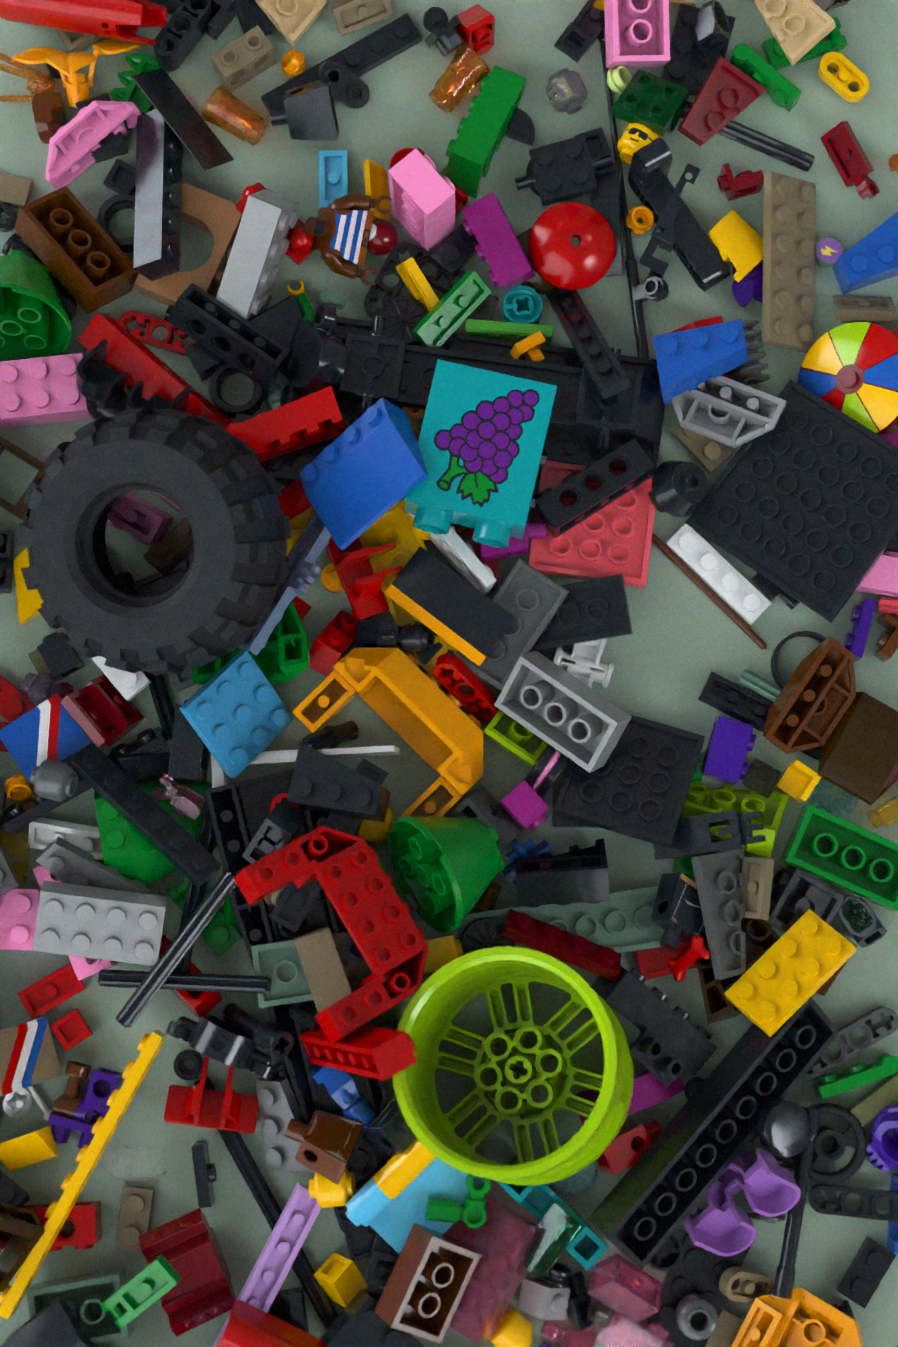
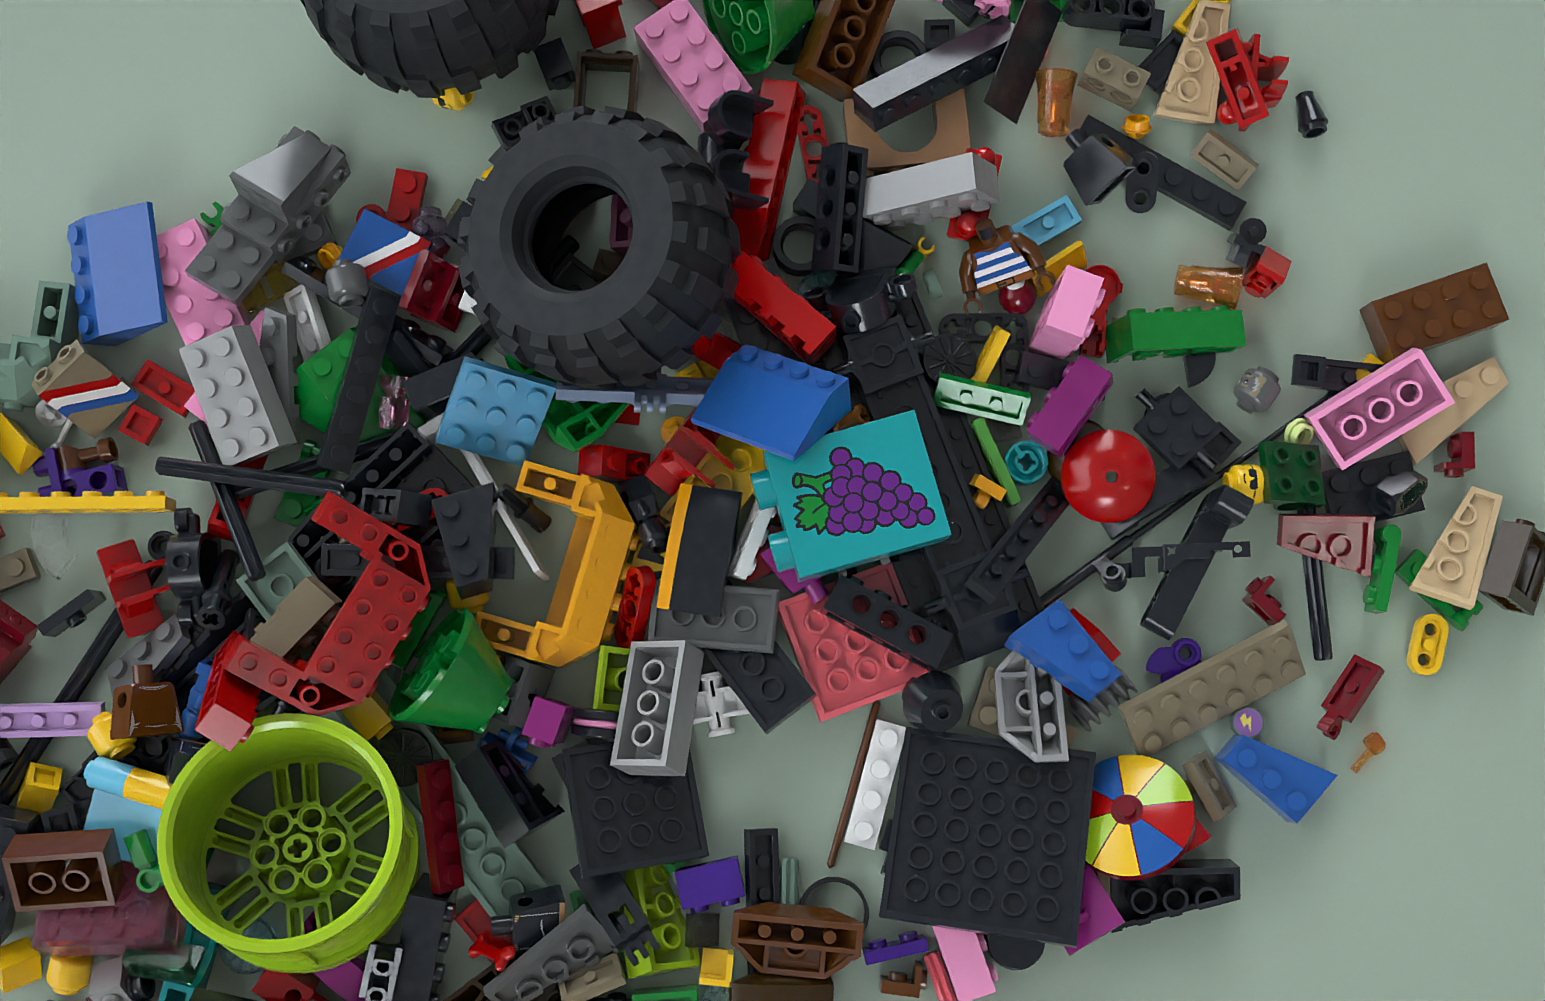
camera: 60 degrees right, 0 degrees up
(645, 215) = (1179, 532): light orange plate -> none
(737, 244) = (1201, 631): yellow slope -> none

